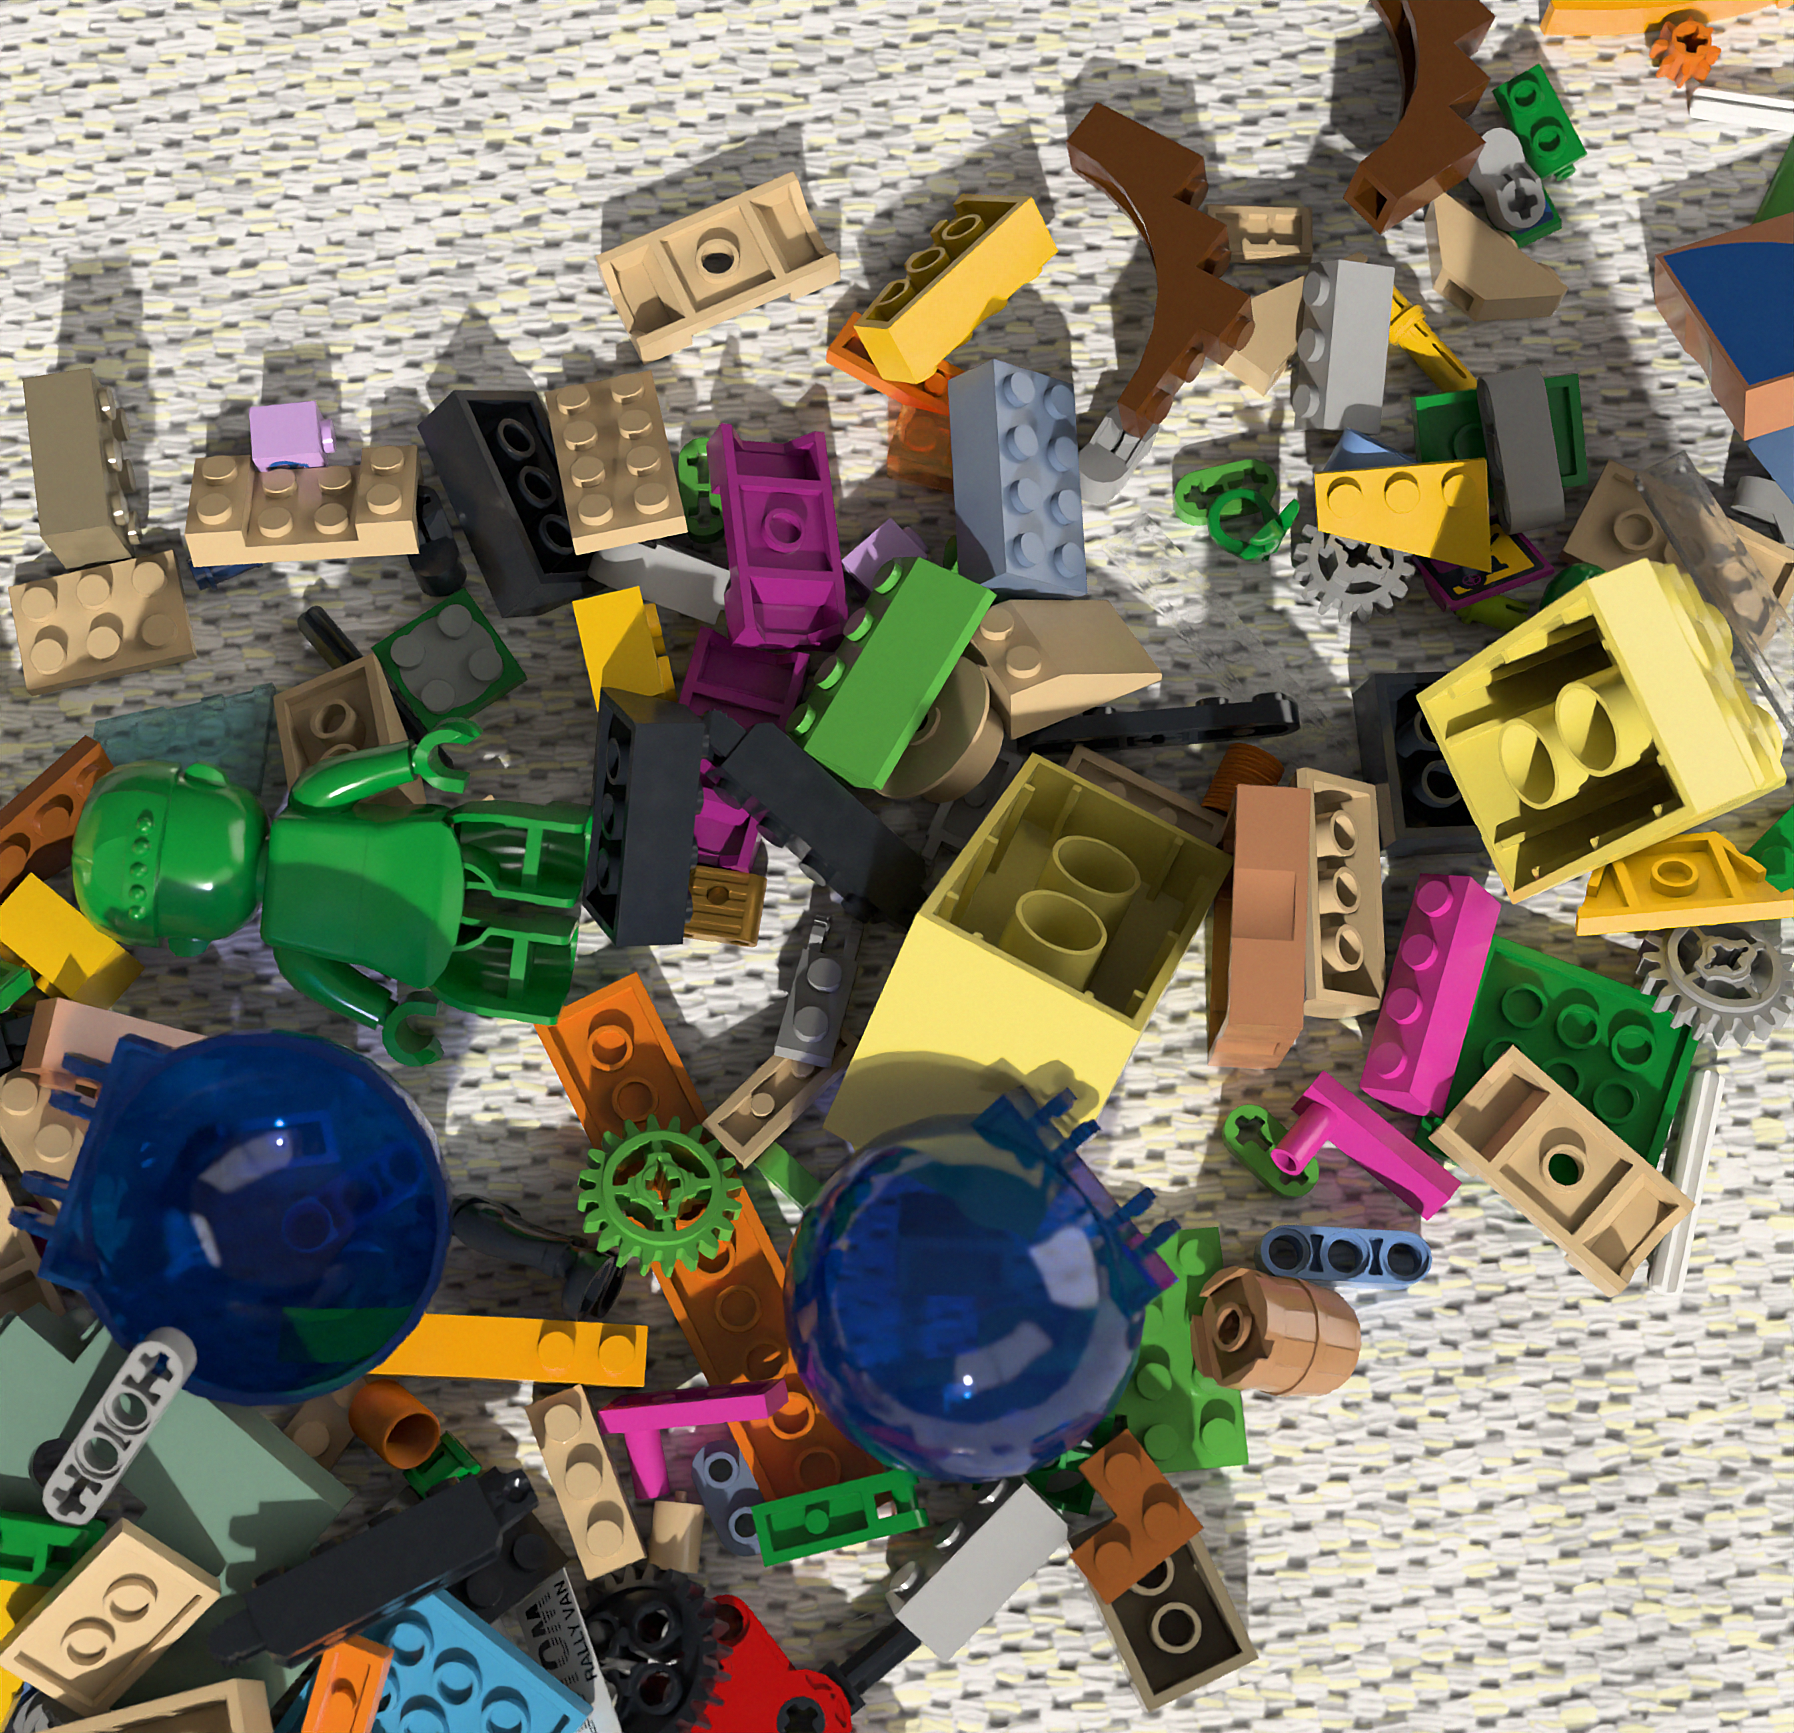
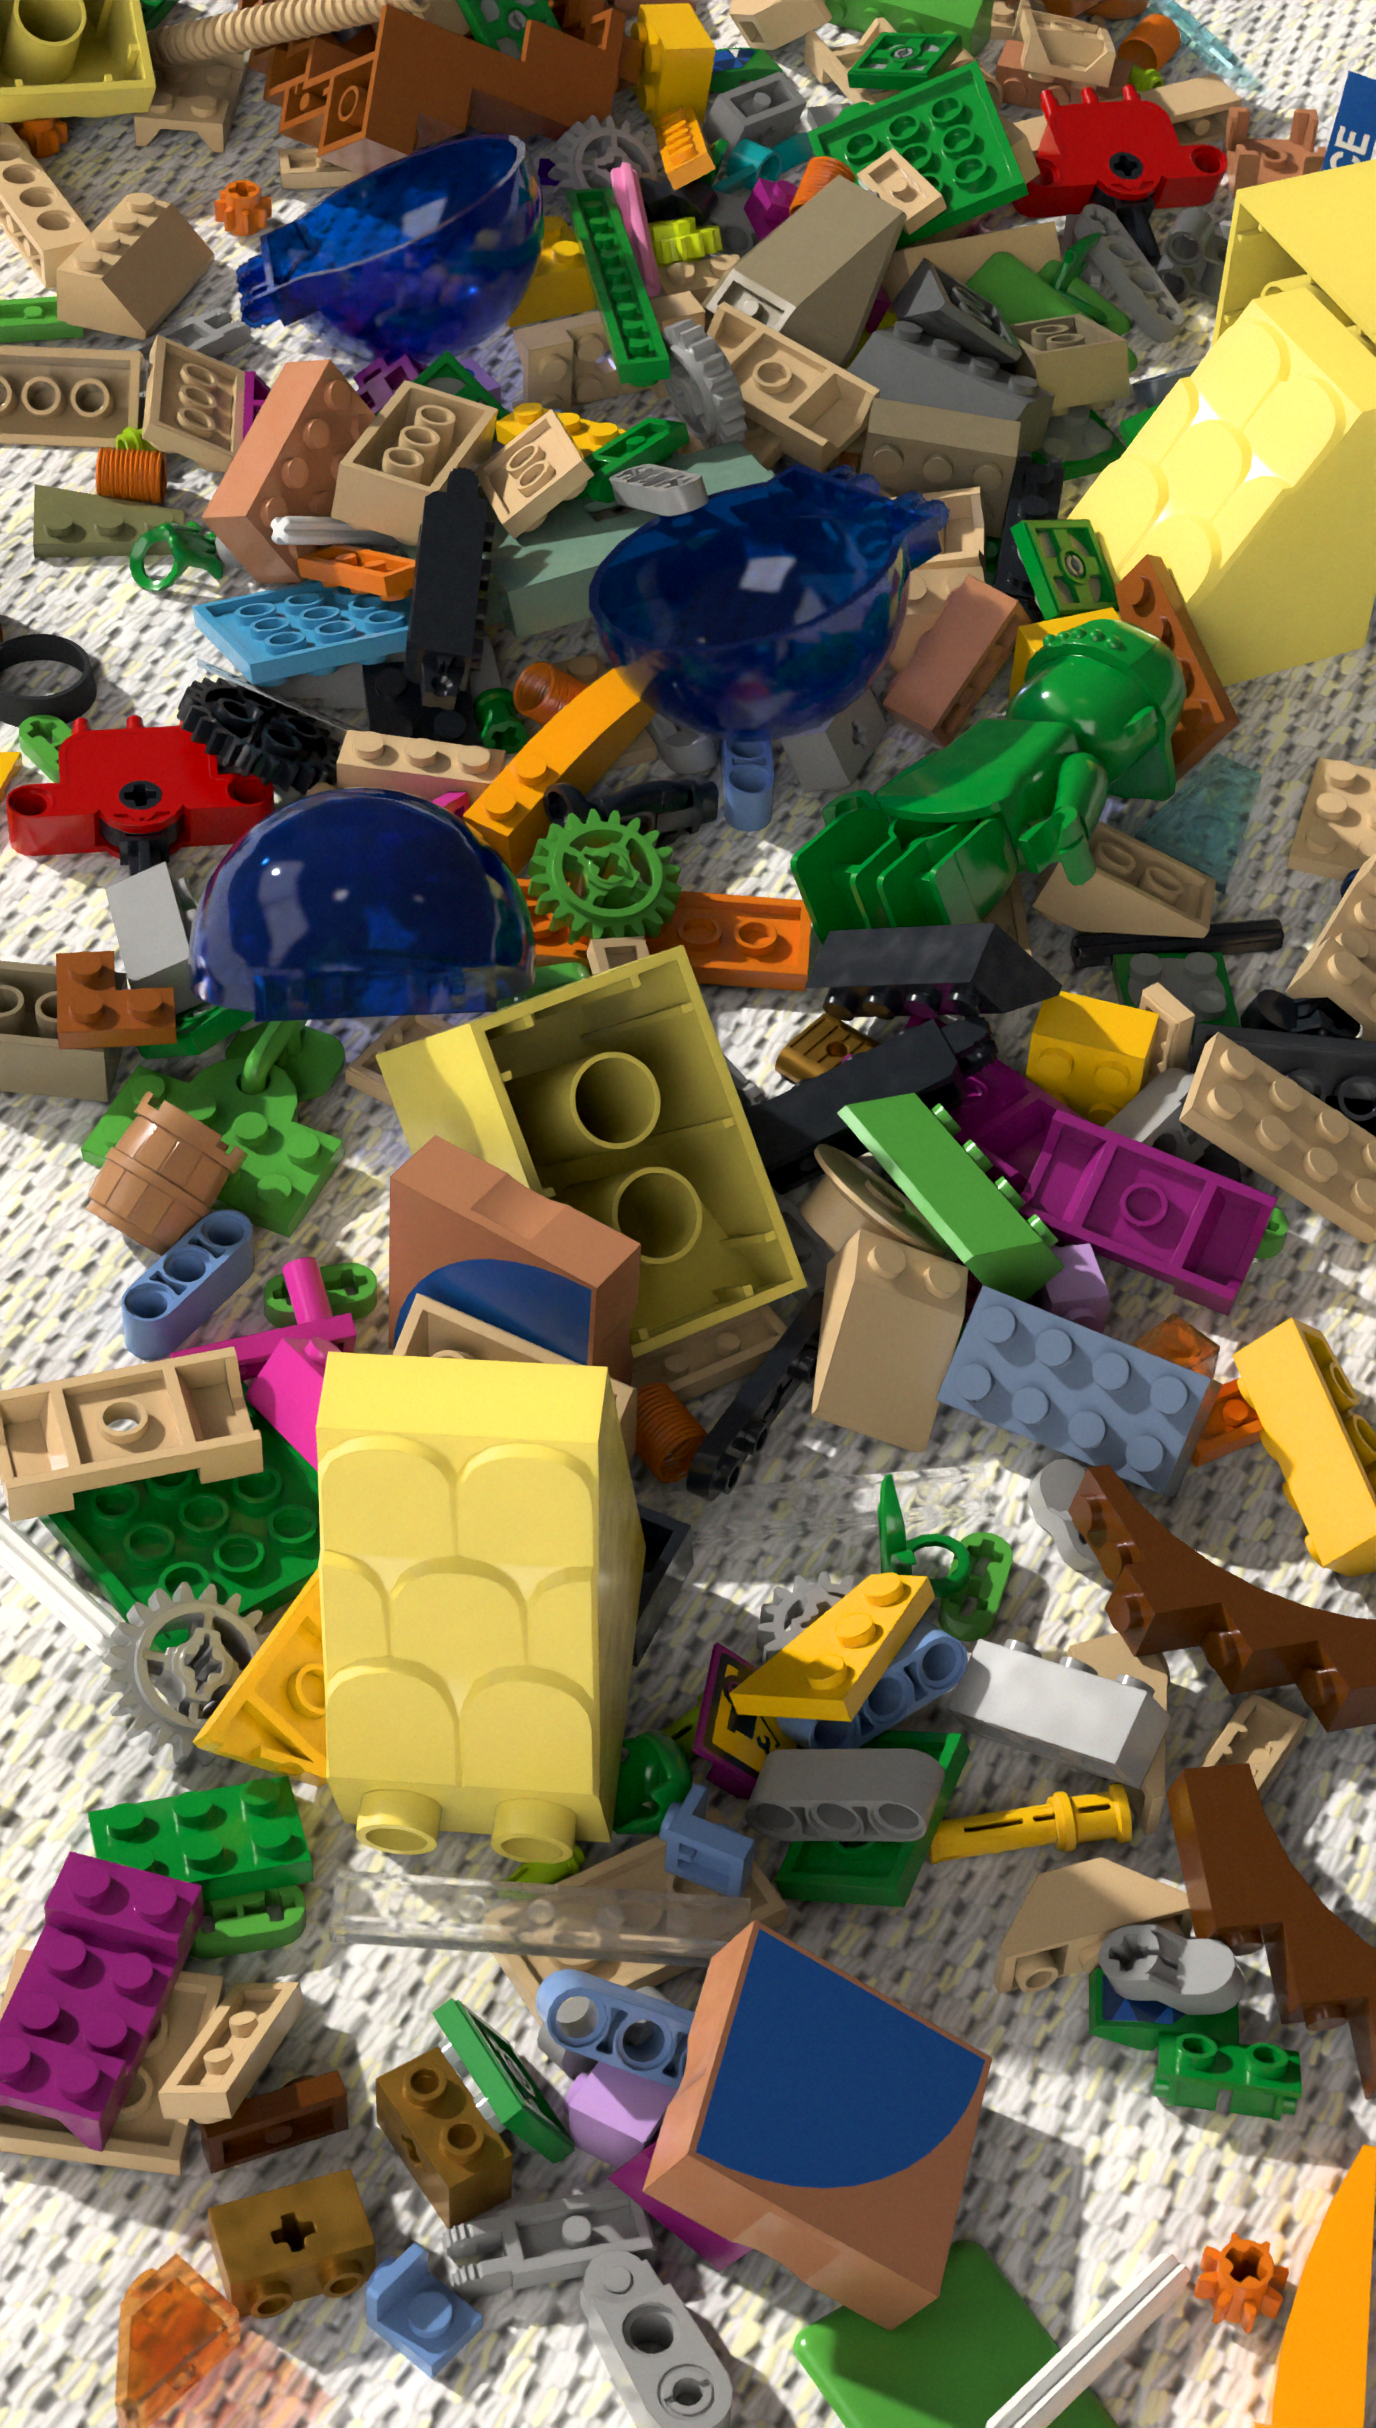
camera: 120 degrees right, 30 degrees down
(555, 619) = (1172, 1032): none -> tan plate
(1628, 515) = (705, 1851): none -> medium blue bracket

